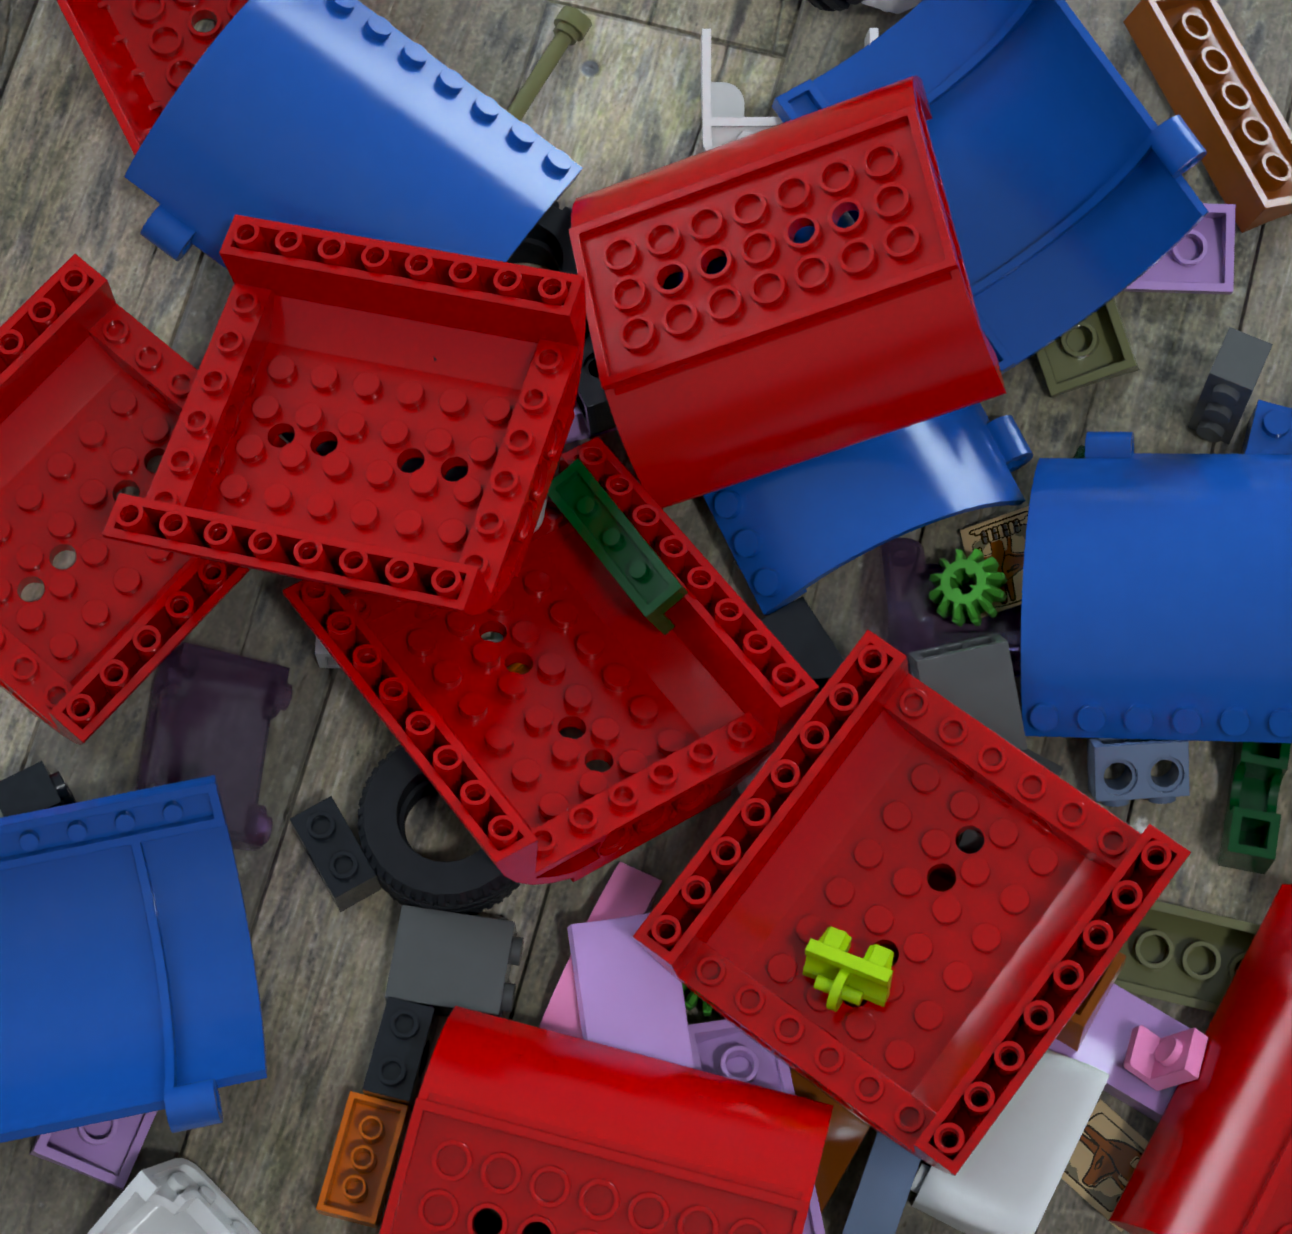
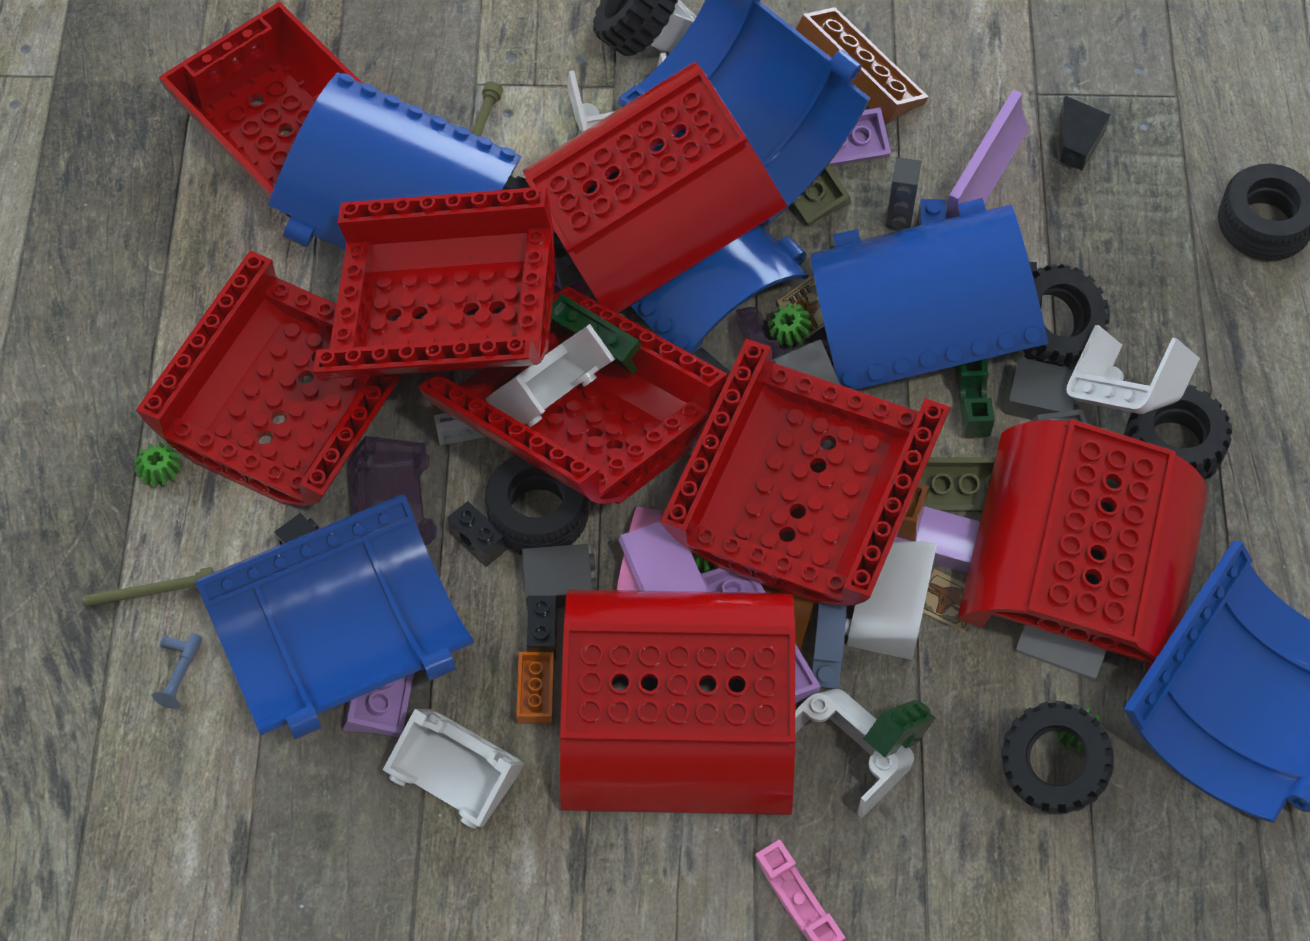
camera: 15 degrees left, 10 degrees down
(555, 591) = (557, 374): none -> white windscreen
(845, 974) = (781, 519): lime hips -> none
(1136, 780) = (907, 390): sand blue brick -> none
(1167, 1059) = (966, 533): bright pink bracket -> none

